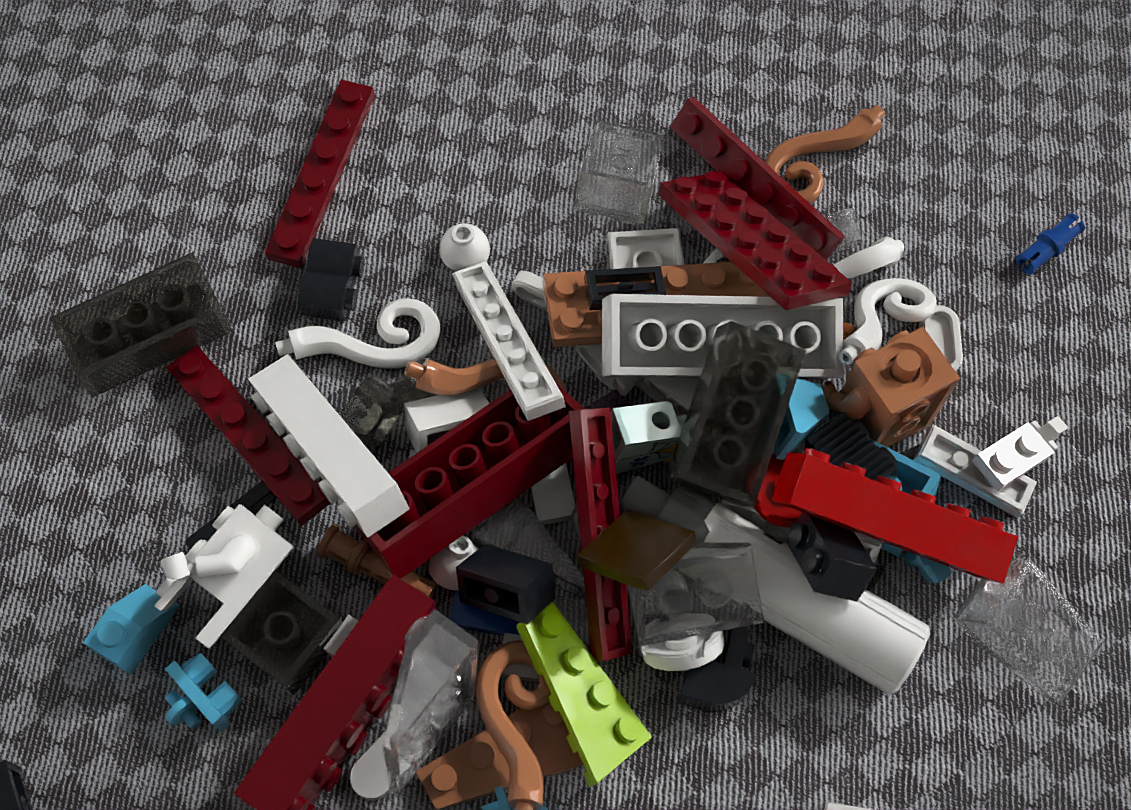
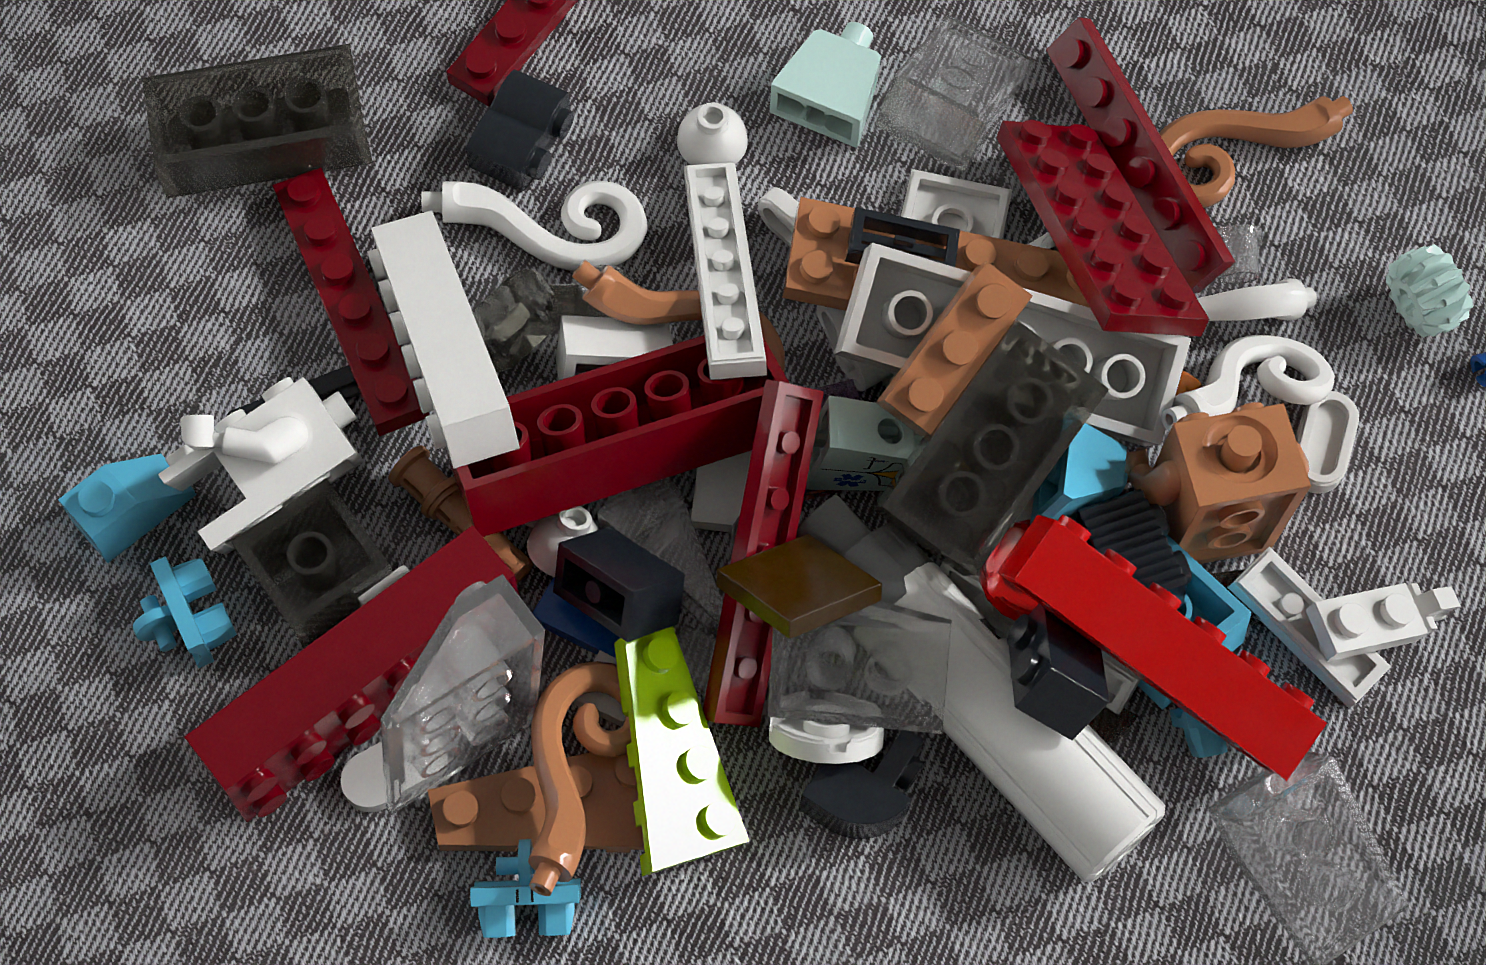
camera: 15 degrees right, 0 degrees up
(533, 189) = (829, 83): none -> light aqua torso
(690, 352) = (954, 349): none -> nougat brick
(977, 220) = (1429, 291): none -> light aqua gear

